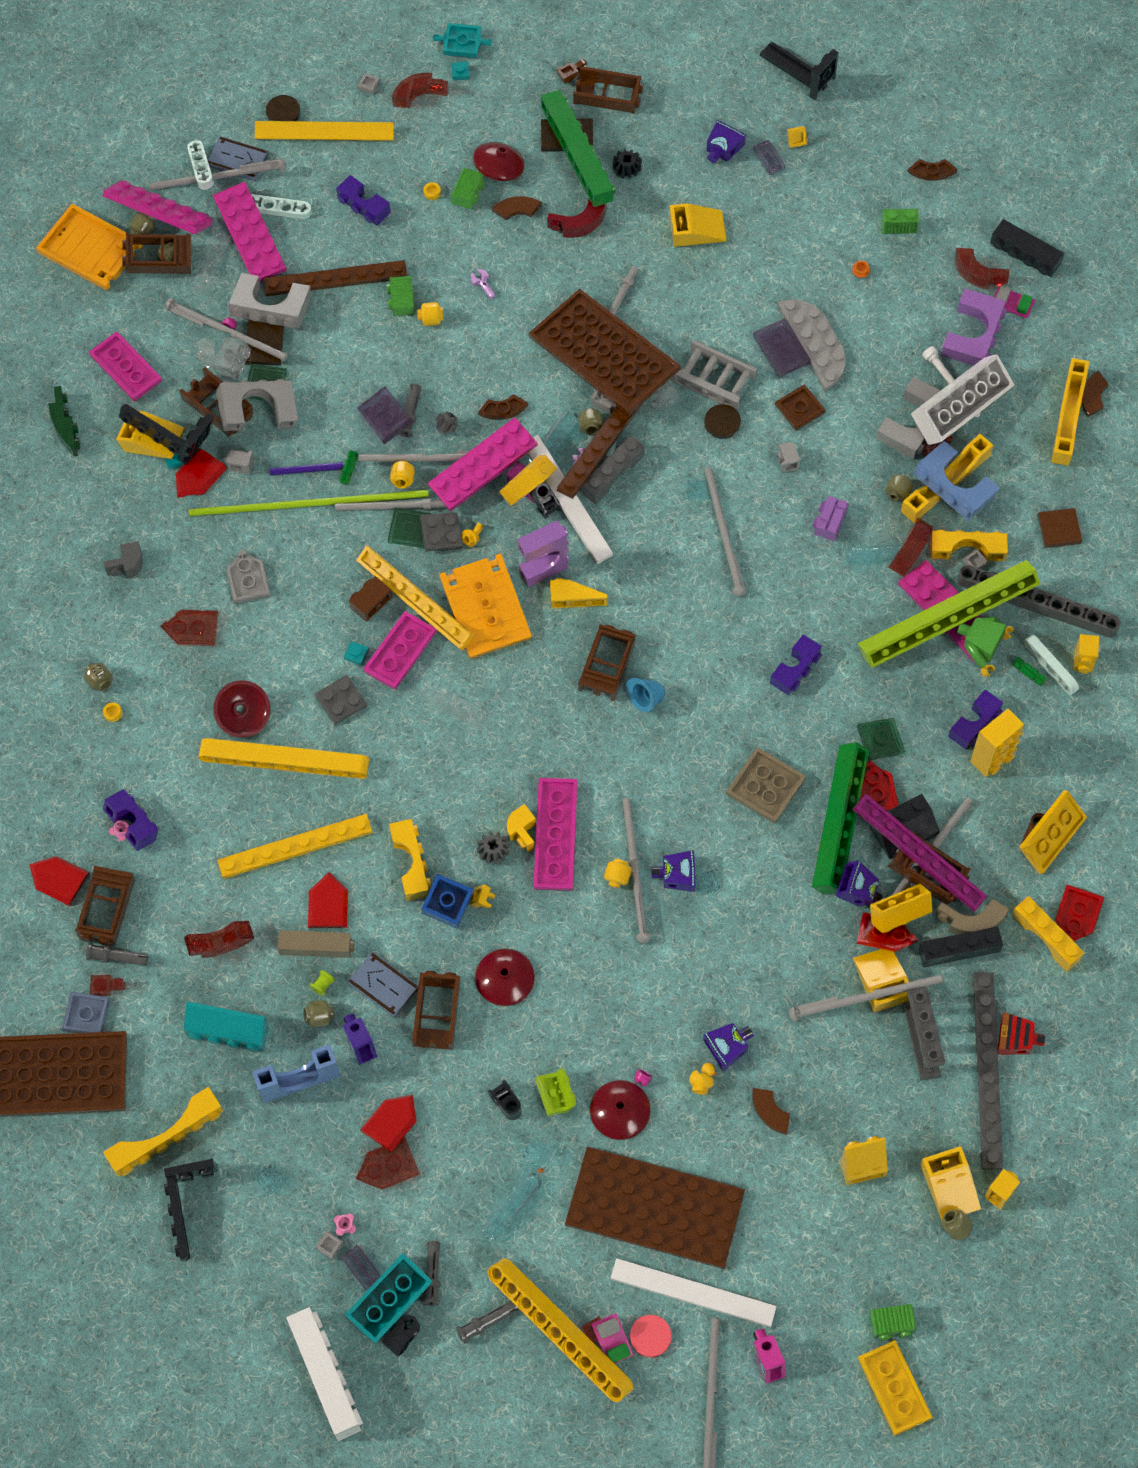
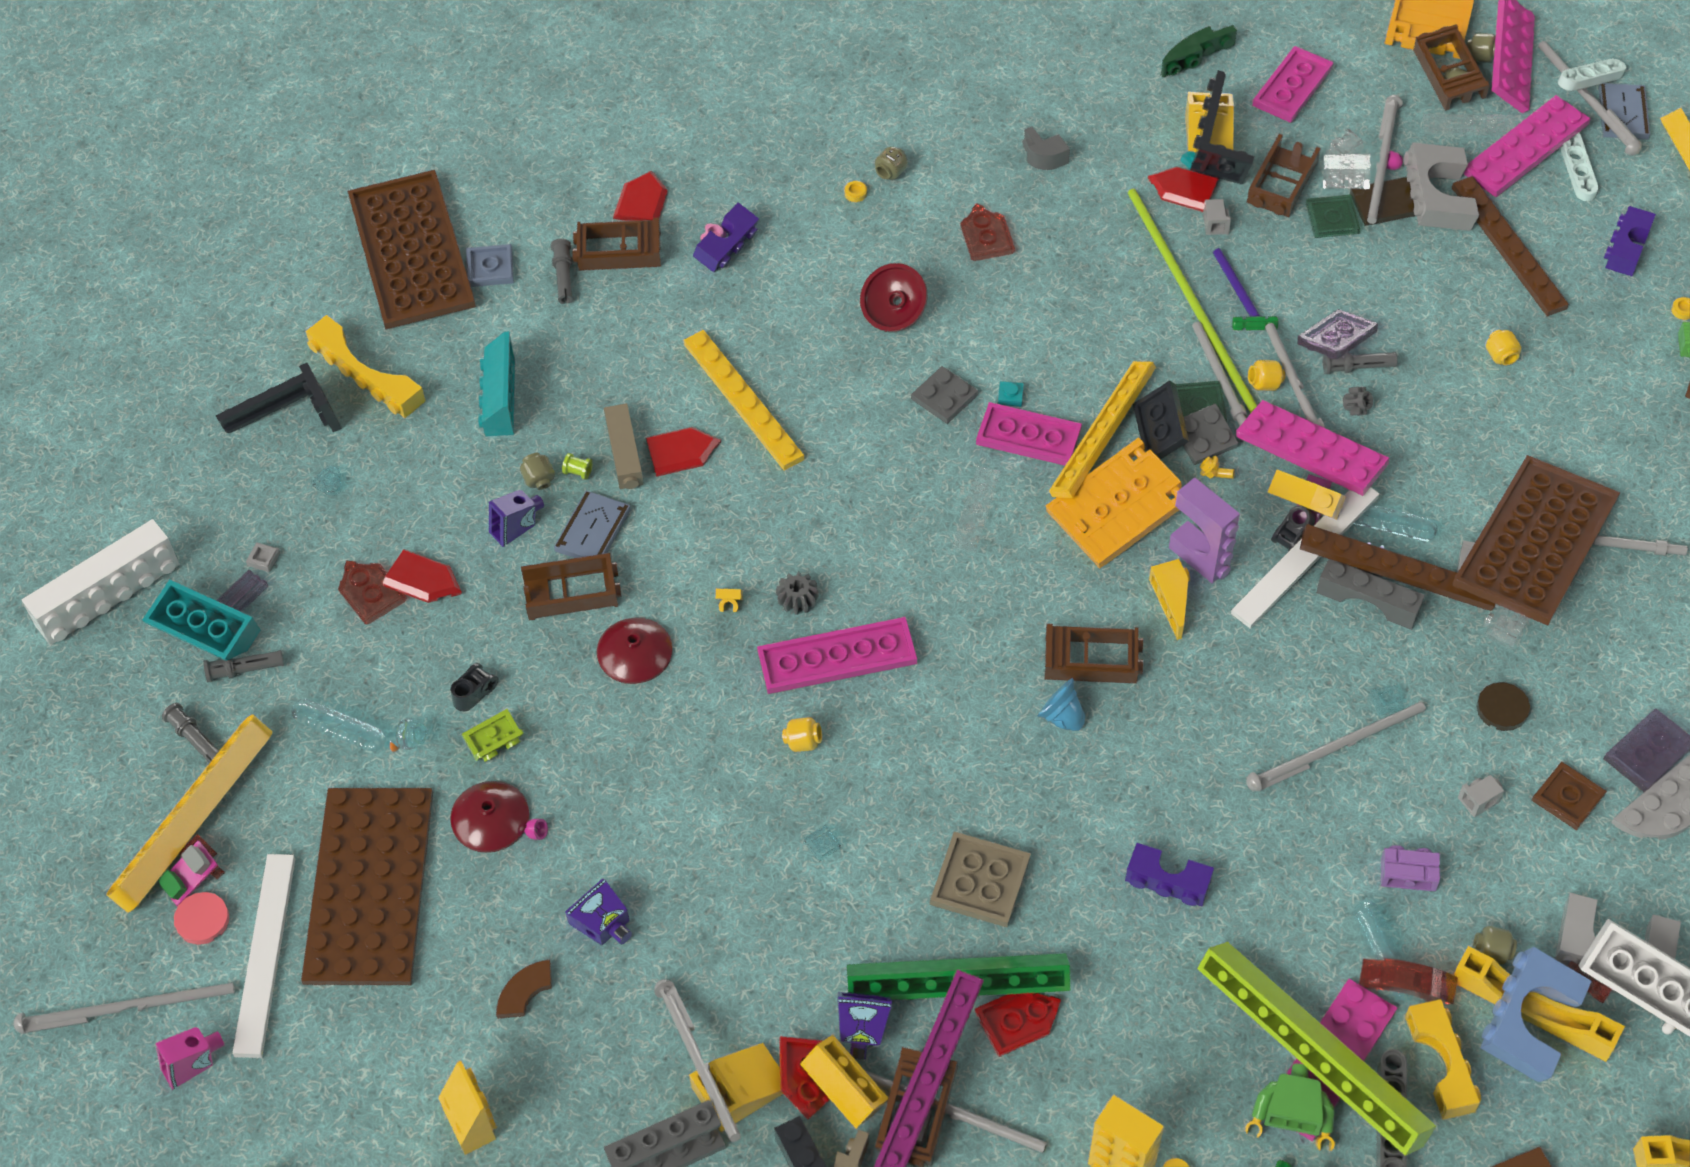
camera: 75 degrees right, 10 degrees down
(103, 984) = (526, 271): clear red plate -> none
(220, 941) = (599, 353): clear red arch -> none
(247, 578) = (1068, 266): light grey tile -> none
(276, 393) = (1290, 175): light grey arch -> none
(277, 1085) = (461, 475): medium blue arch -> none
(284, 758) = (848, 359): yellow beam -> none
(349, 1228) = (286, 559): bright pink plate -> none
(370, 598) = (1085, 386): reddish brown brick -> none
(400, 1337) = (164, 653): black piece -> none
(401, 296) = (1515, 311): bright green brick -> none
(404, 838) = (731, 524): yellow arch -> none
(424, 556) = (1161, 420): none -> black plate
(447, 901) = (710, 559): blue brick -> none
(484, 276) = (1578, 392): lavender bar -> none
(503, 409) = (1407, 458): reddish brown tile -> none
(517, 826) = (833, 610): yellow brick -> none
(590, 421) = (1431, 550): olive head -> none
(643, 937) = (726, 783): light grey bar -> none
(677, 871) = (825, 802): dark purple torso -> none
(702, 1081) = (542, 897): yellow animal -> none
(709, 390) = (1542, 685): light grey fence -> none
(881, 738) = (1096, 1007): clear green tile -> none
(915, 816) = (983, 1071): black slope -> none
(965, 731) = (1188, 1140): dark purple arch -> none
(975, 559) = (1424, 1076): light grey tile -> none

